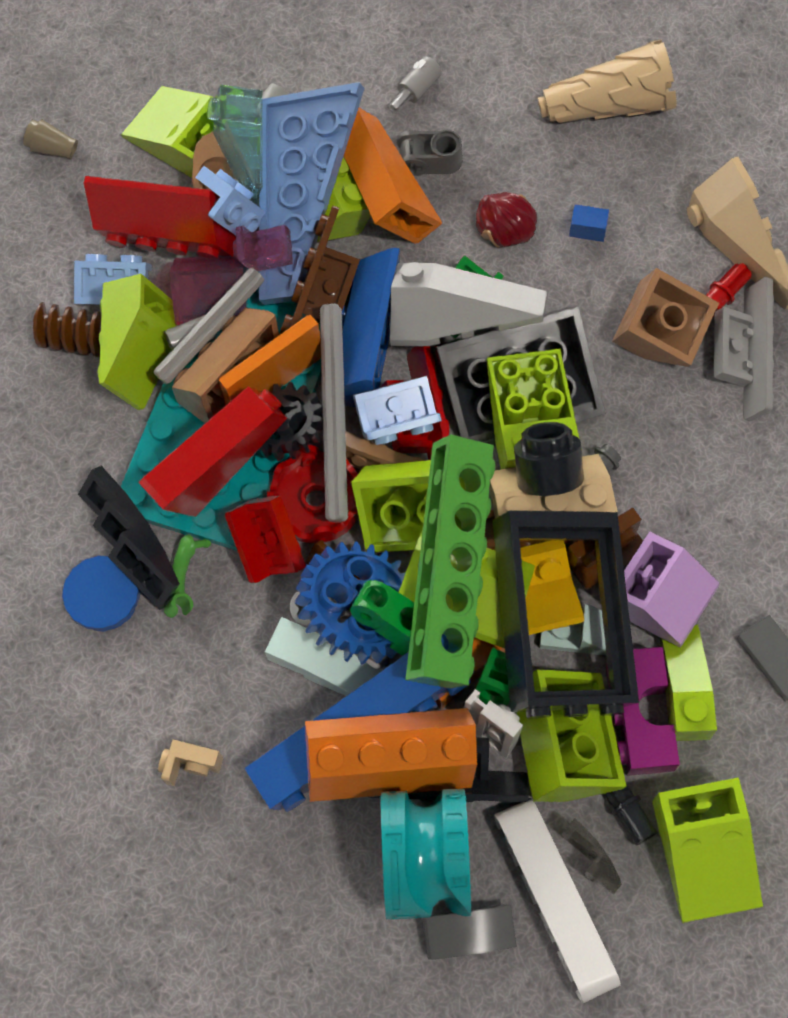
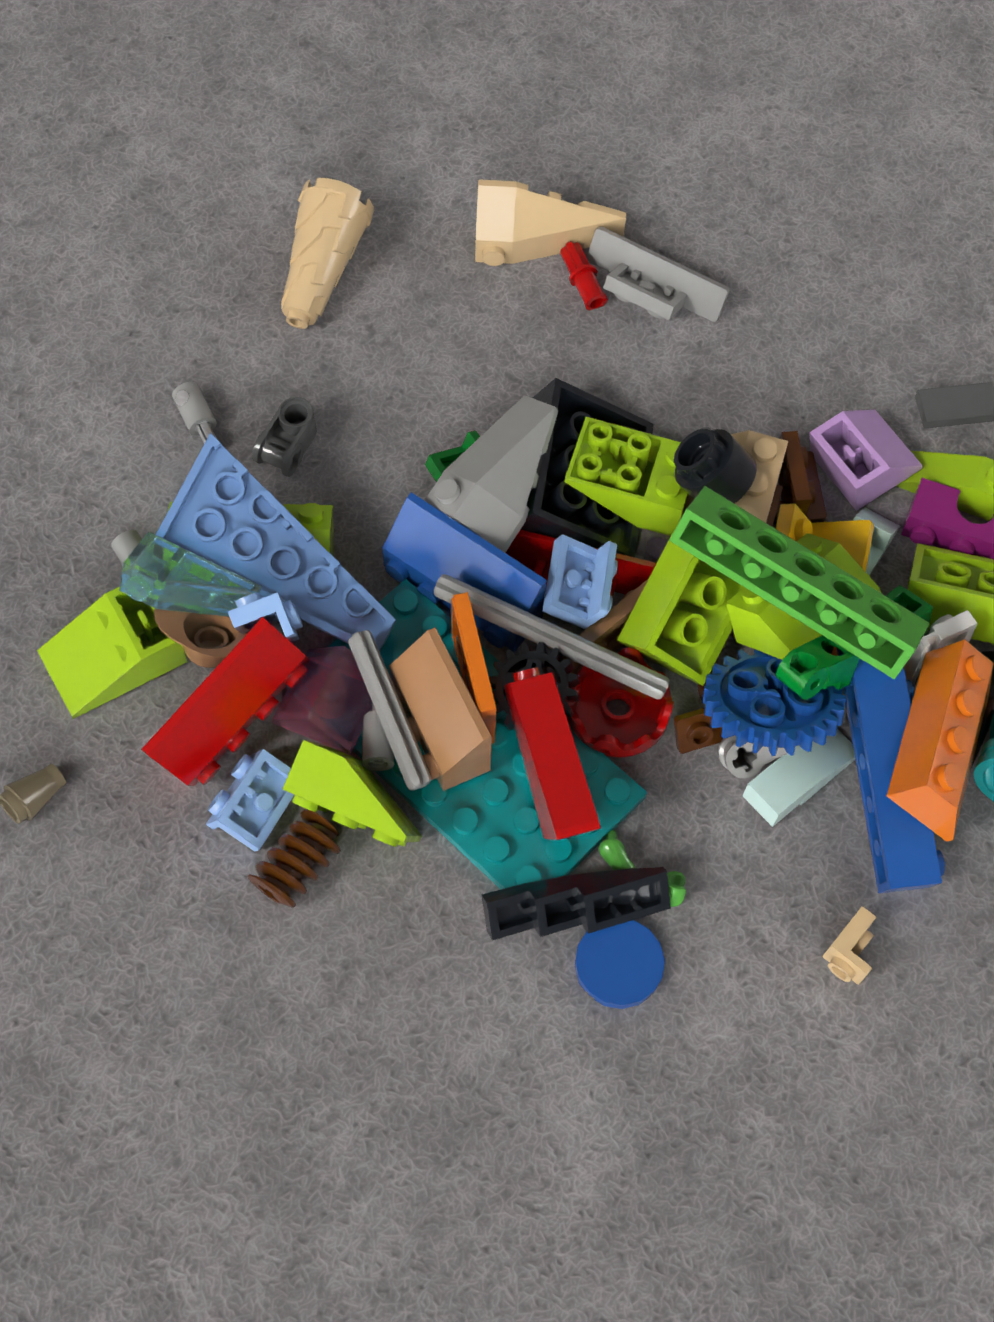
camera: 70 degrees left, 5 degrees down
(263, 248) = (333, 614): clear pink bracket -> none
(265, 538) = (651, 762): red bracket -> none
(328, 276) = (393, 579): reddish brown bracket -> none
(387, 182) = (316, 480): orange slope -> none
(506, 219) = (402, 407): dark red hair -> none
(565, 526) = (890, 494): black door -> none
(589, 223) = (446, 343): blue slope -> none
(665, 320) = (592, 327): medium nougat slope -> none

